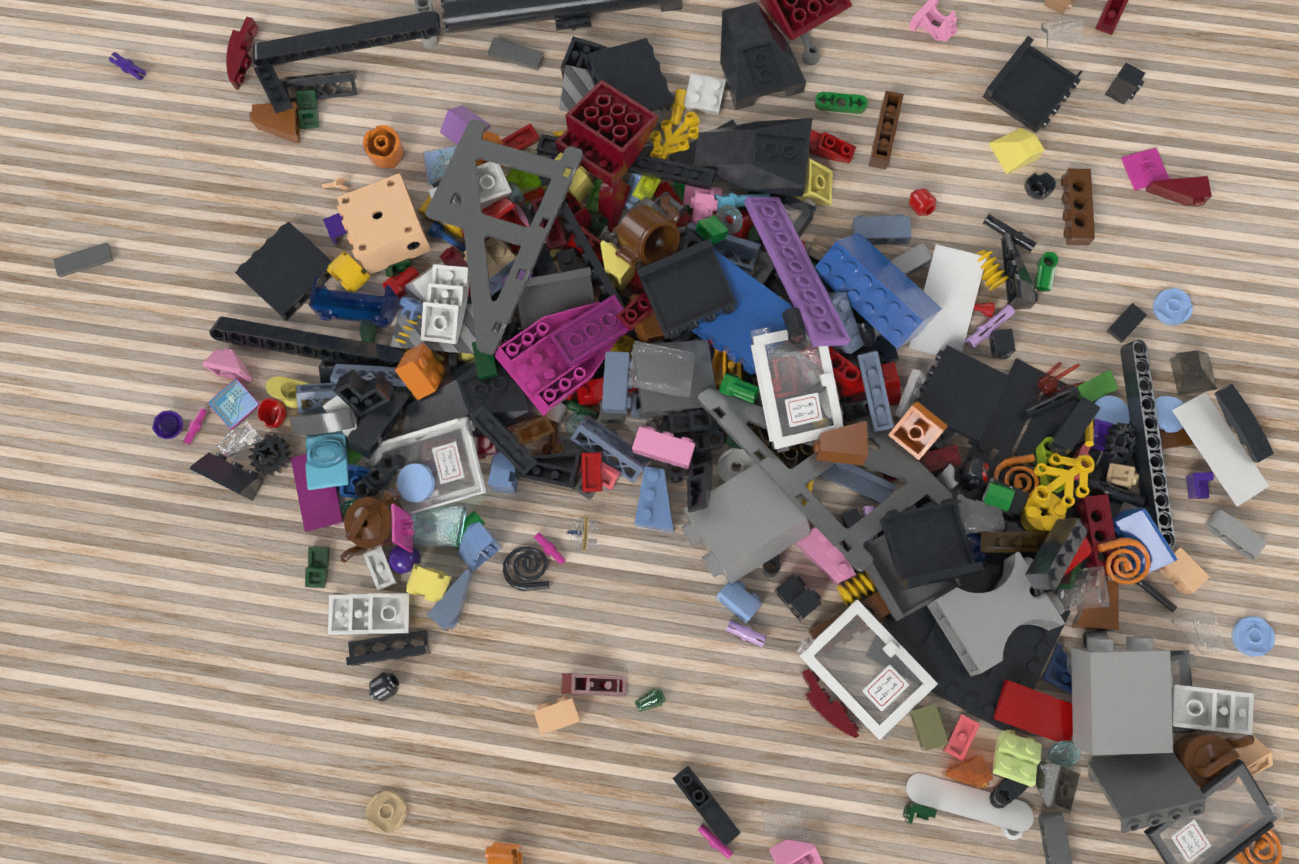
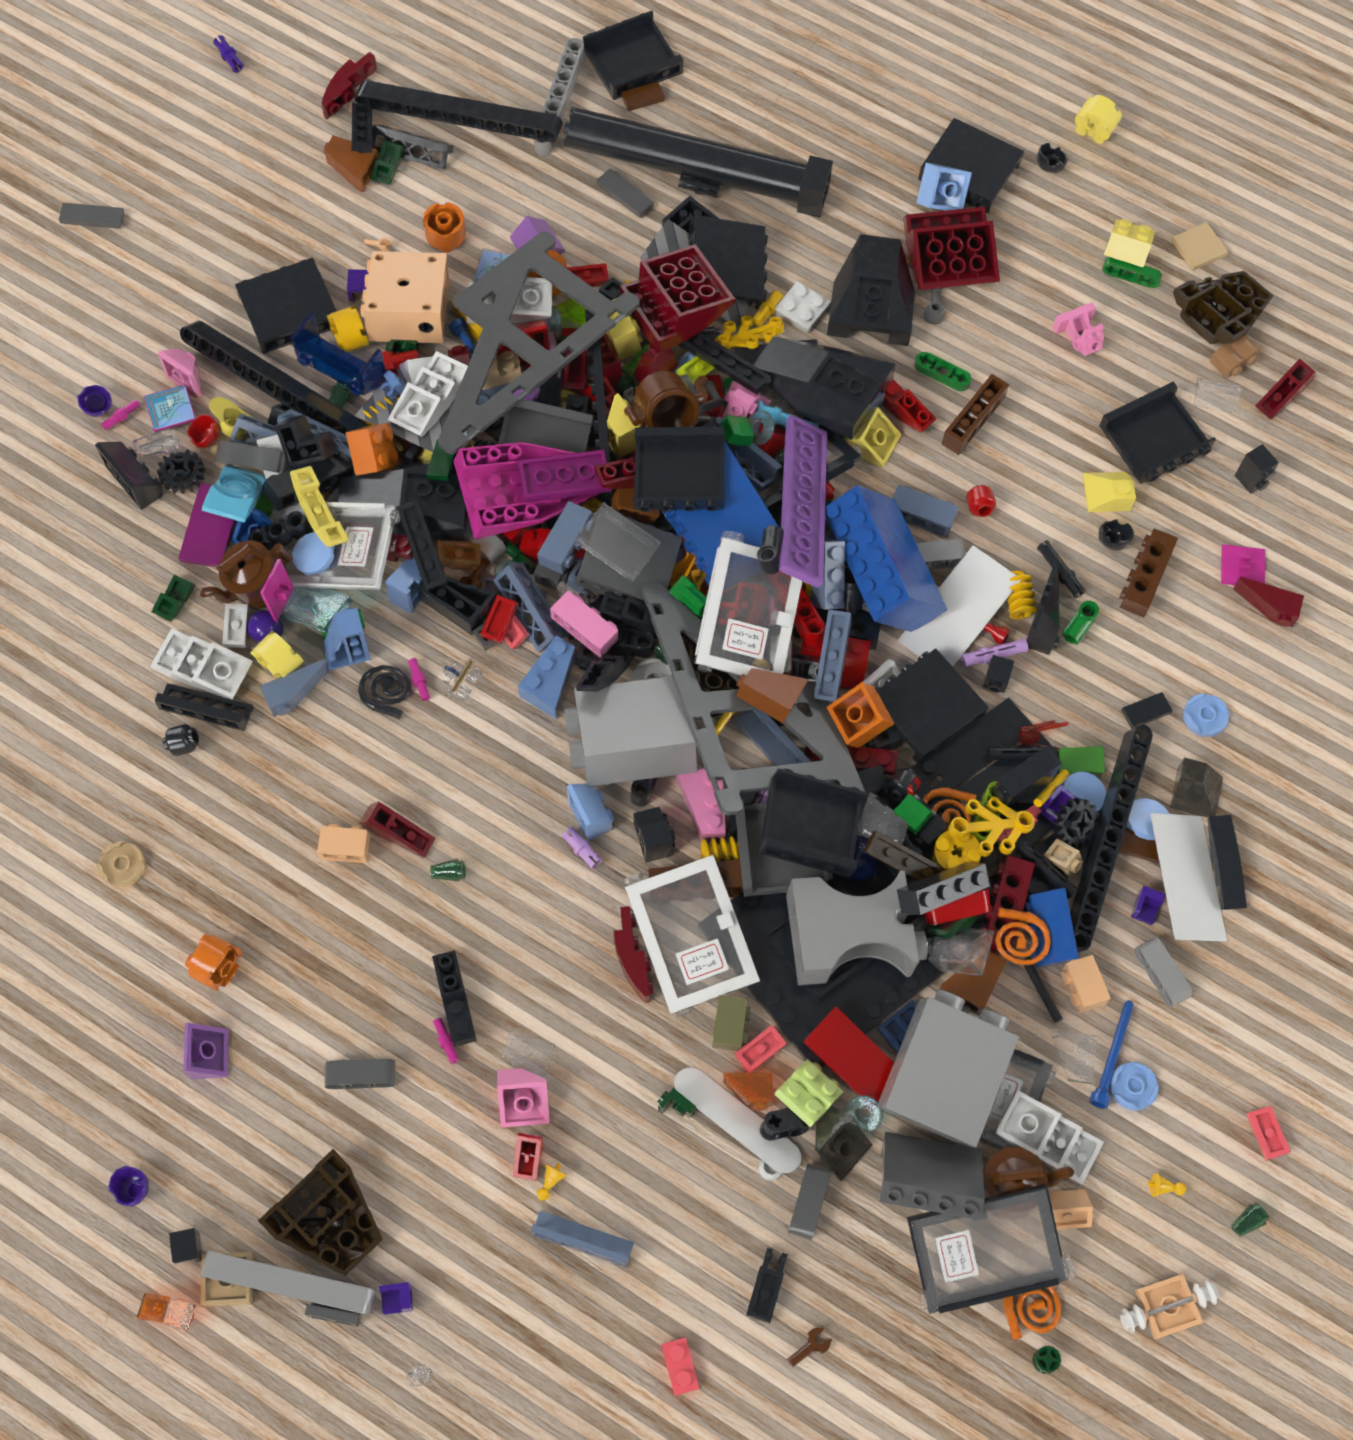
camera: 15 degrees right, 10 degrees down
(401, 446) = (315, 508): none -> light yellow slope
(1233, 657) = (1100, 1097): none -> blue piece

